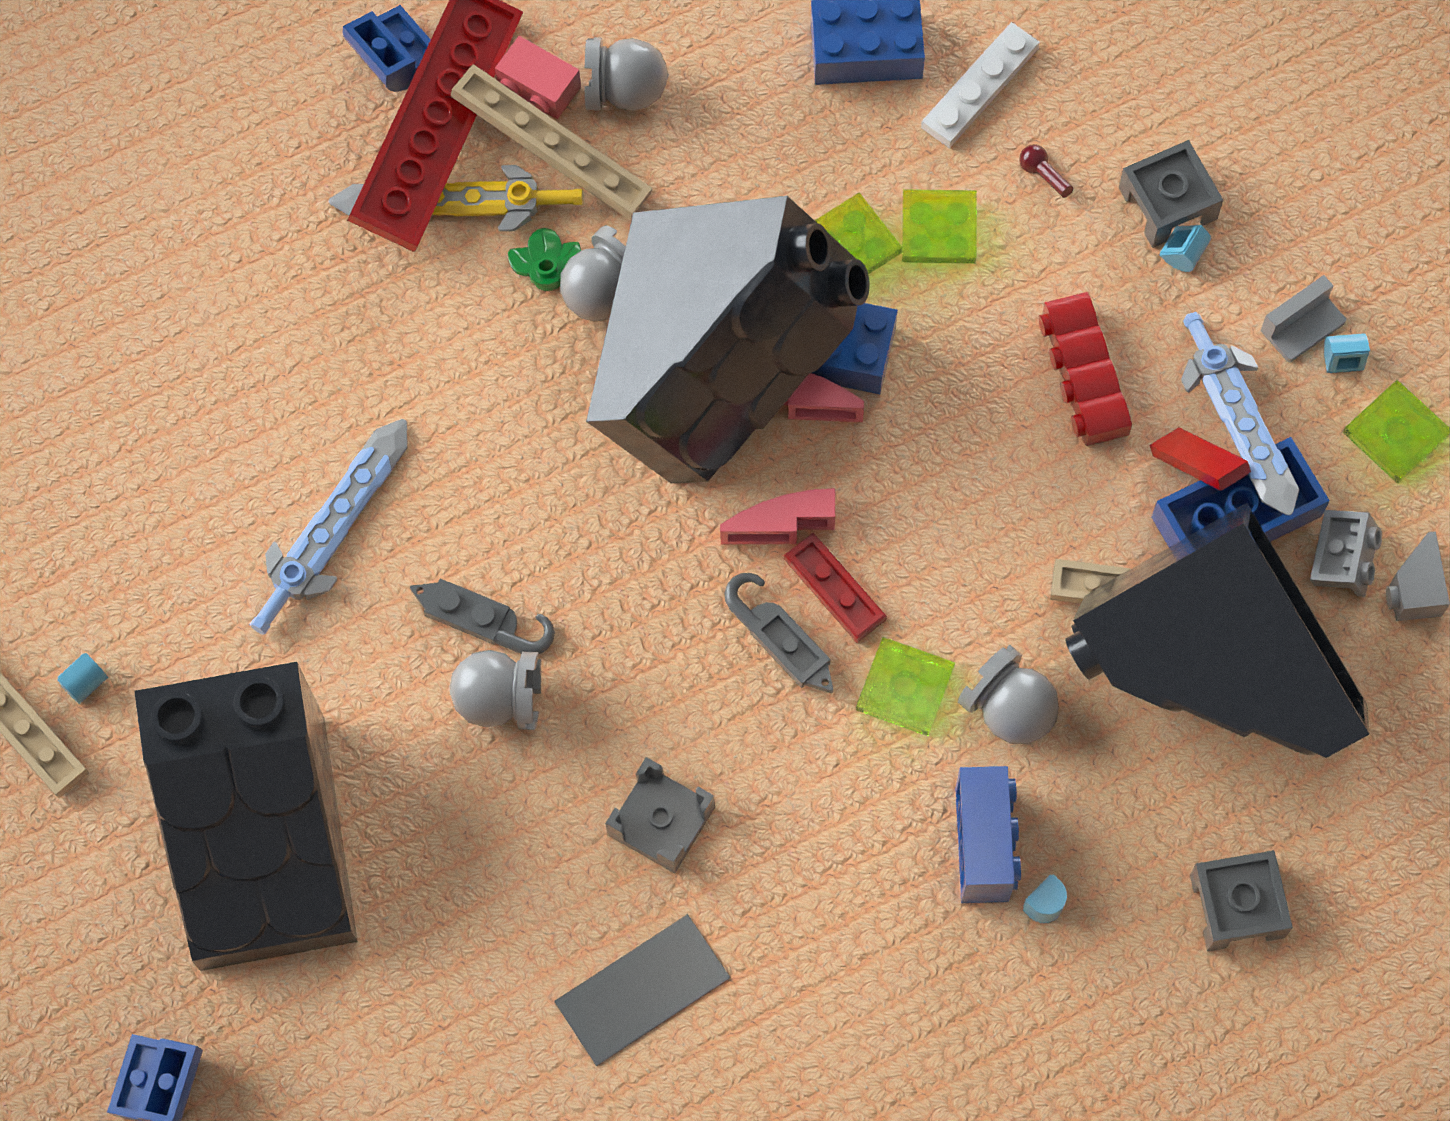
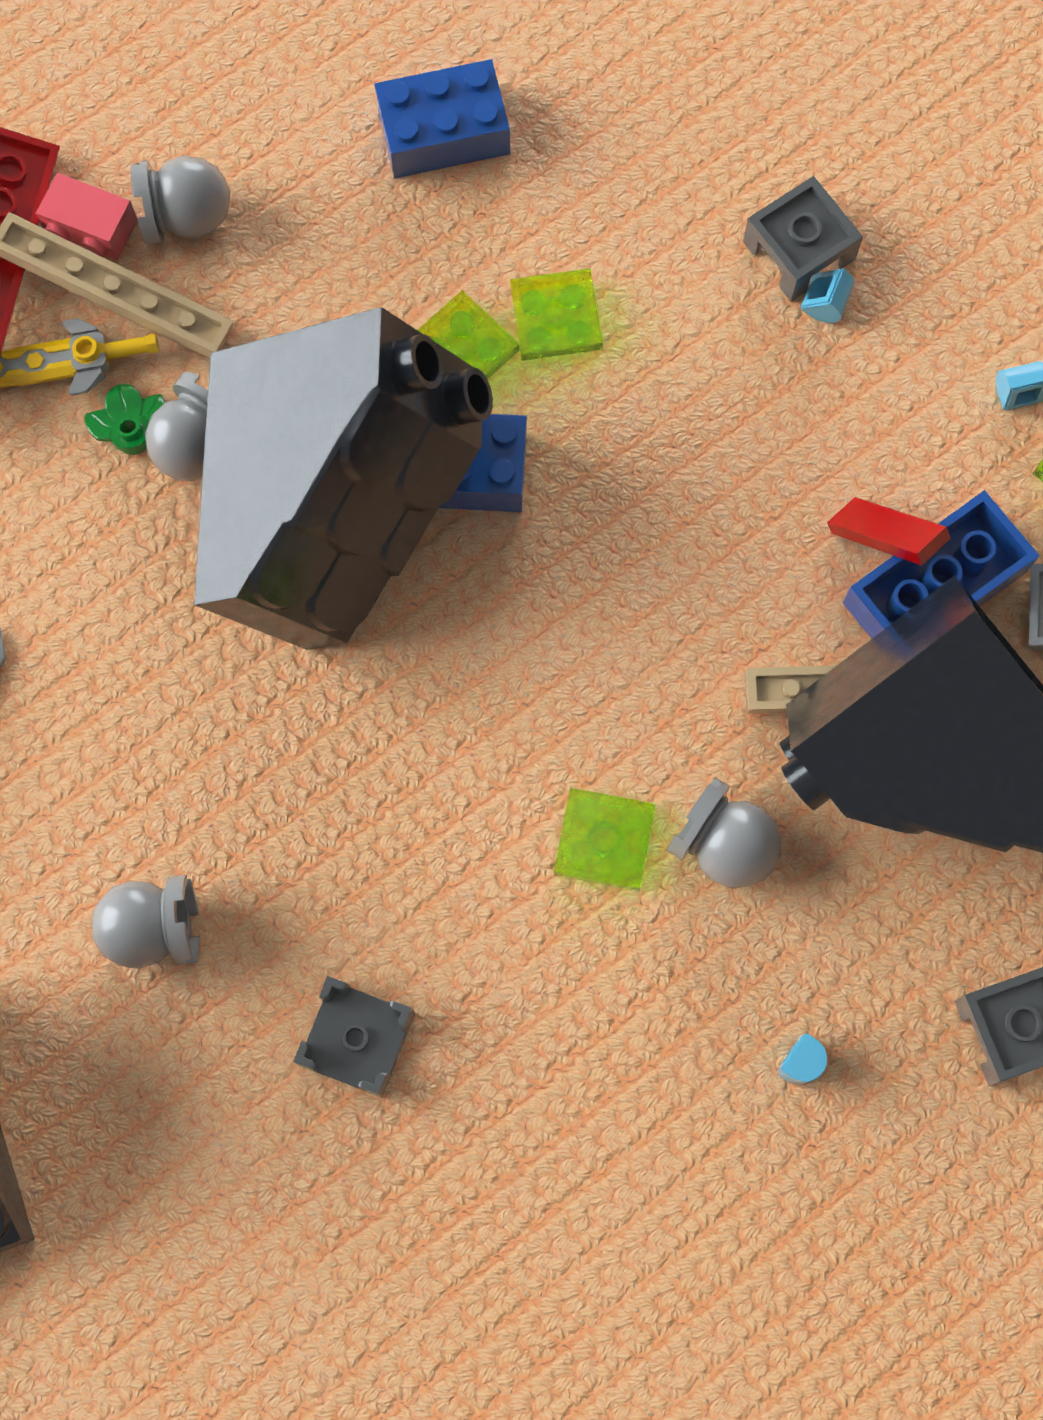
camera: 10 degrees left, 5 degrees up
(478, 616) = (116, 838): dark grey plate -> none
(642, 989) = (366, 1240): dark grey piece -> none
(780, 518) = (434, 671): coral slope -> none
(781, 637) = (456, 806): dark grey plate -> none
(824, 401) = (462, 530): coral slope -> none
(835, 587) = (508, 739): red tile -> none
(980, 85) = (574, 151): white plate -> none
(987, 834) = (725, 999): brick -> none
(1035, 160) = (648, 225): dark red bar -> none
(1086, 368) = (744, 448): red brick -> none
(1220, 373) = (892, 431): sword -> none
(1303, 320) = (969, 357): light grey panel -> none

